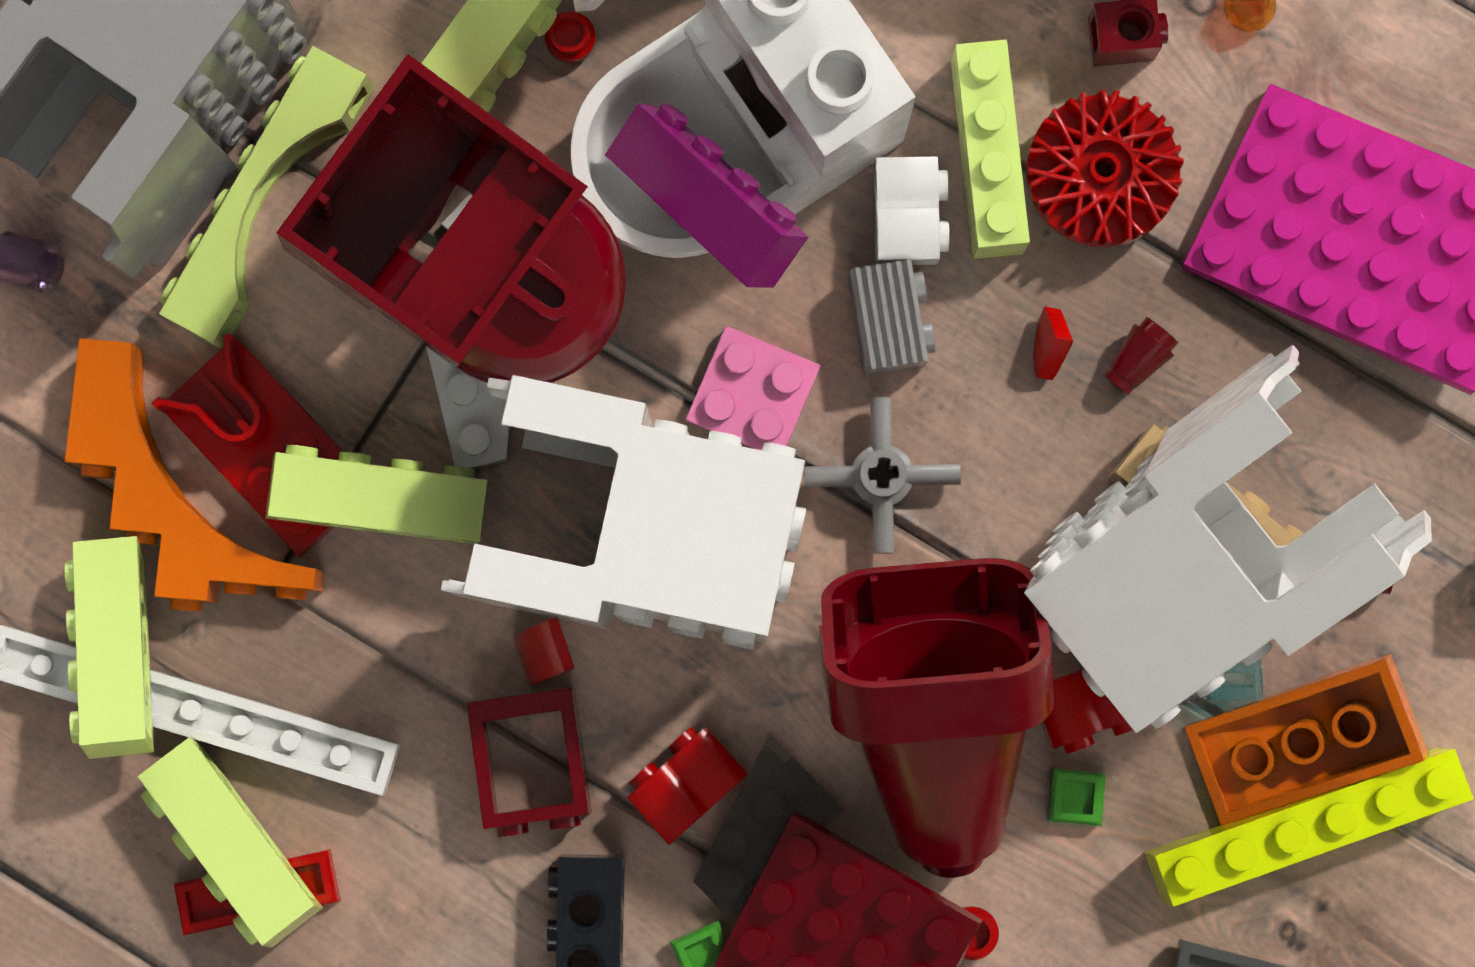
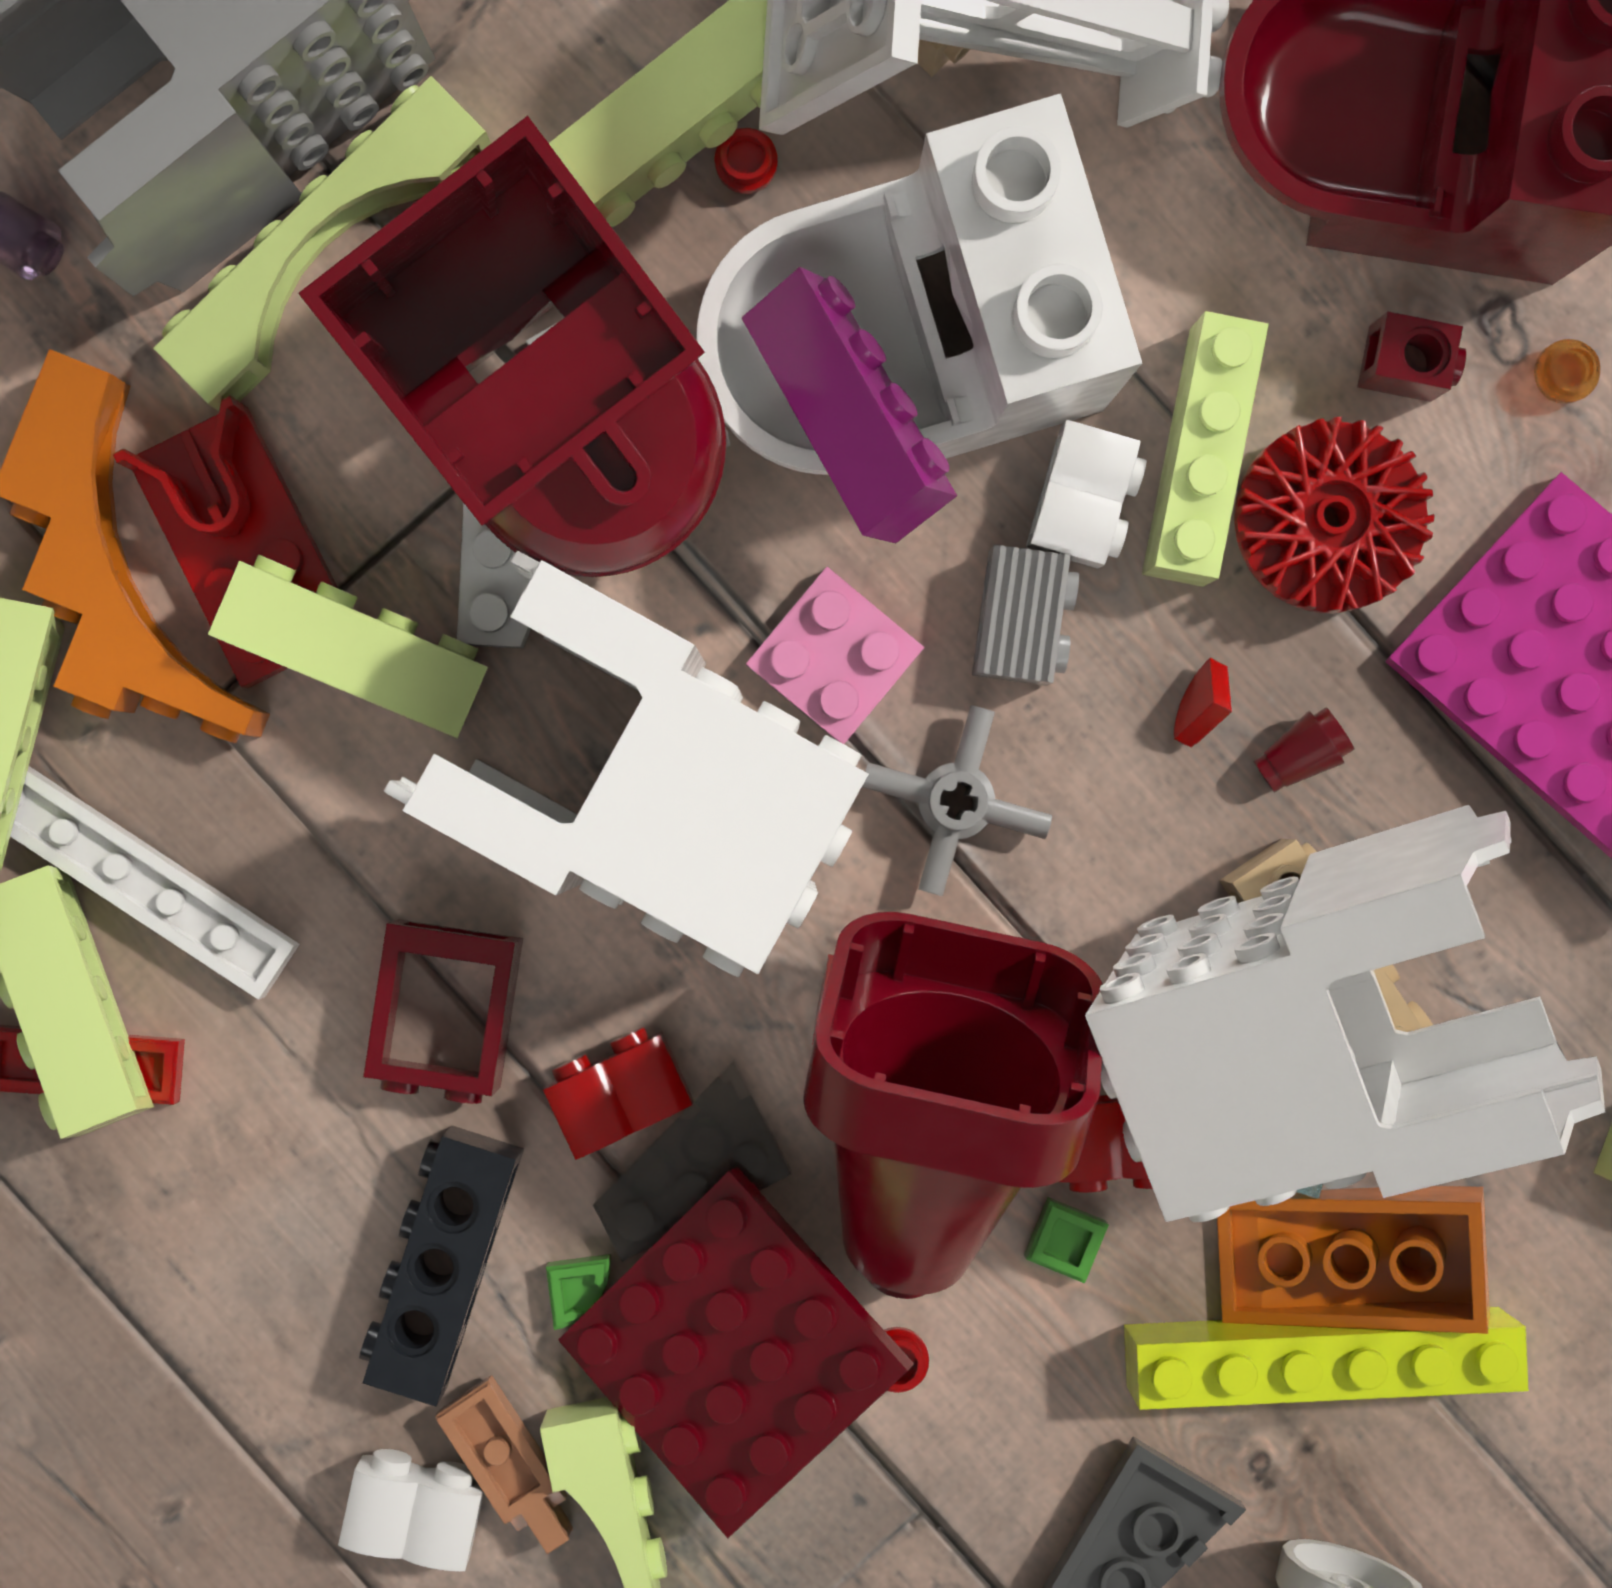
camera: 10 degrees right, 5 degrees up
(543, 652) = (493, 894): red slope -> none

